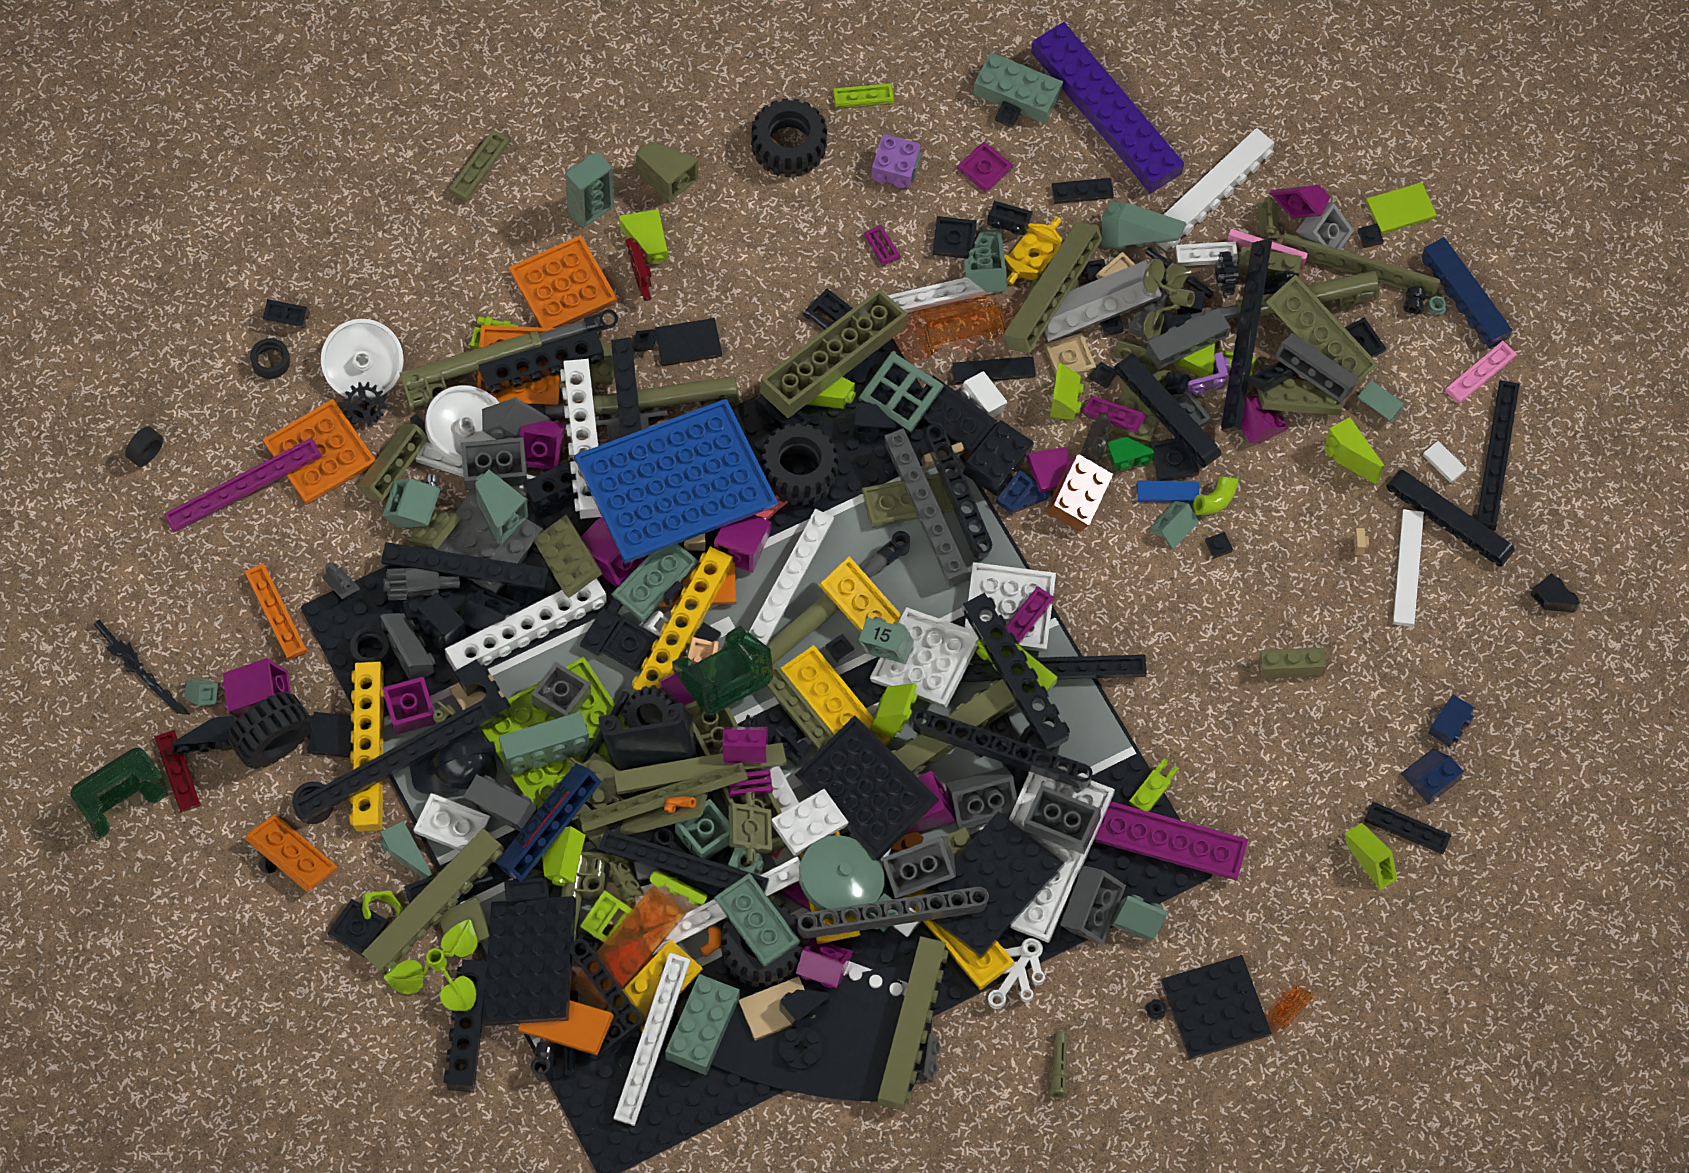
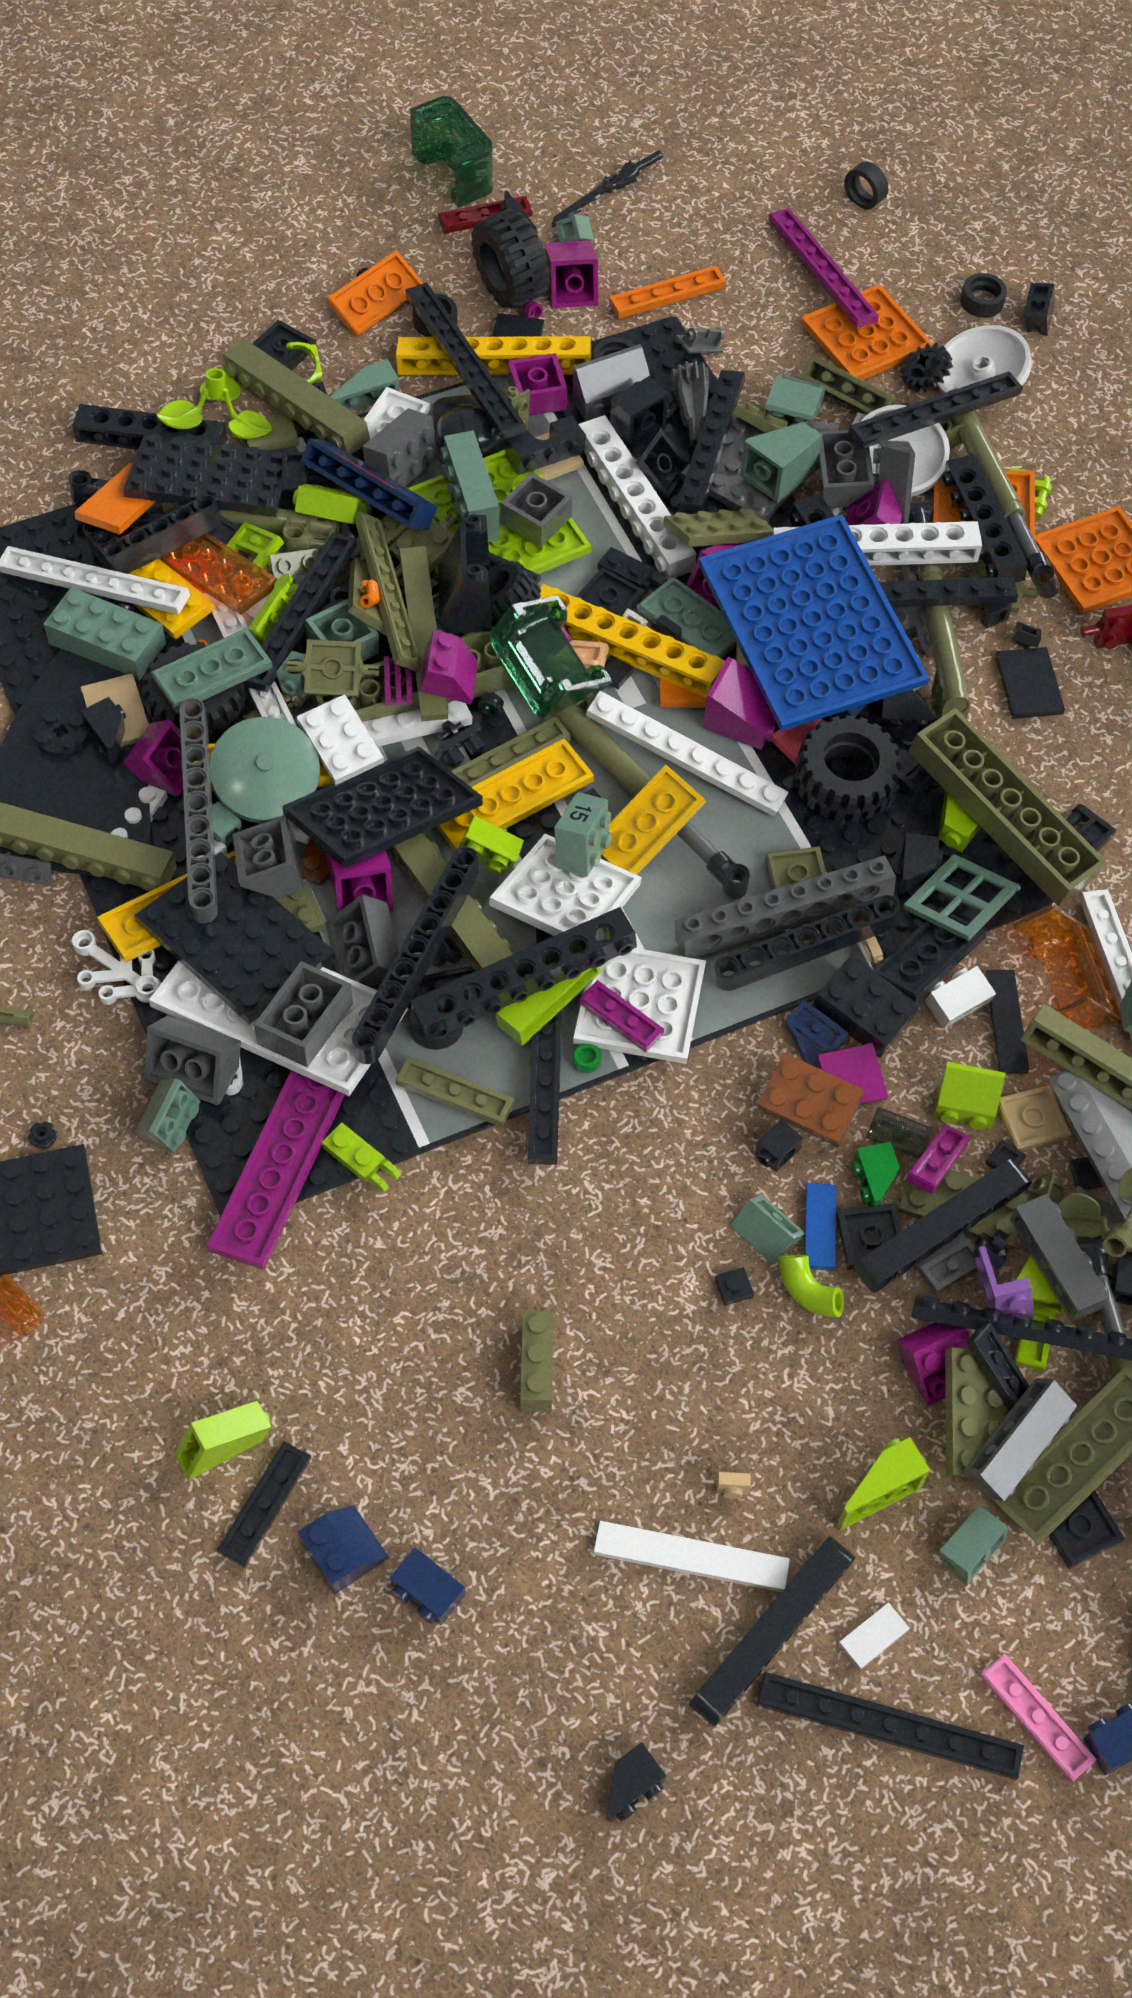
camera: 95 degrees right, 5 degrees down
(438, 389) = (935, 410): none -> black plate
(1057, 642) = (587, 1058): none -> green tile
(1096, 726) = (455, 1091): none -> olive plate
(1113, 516) = (778, 1146): none -> black brick

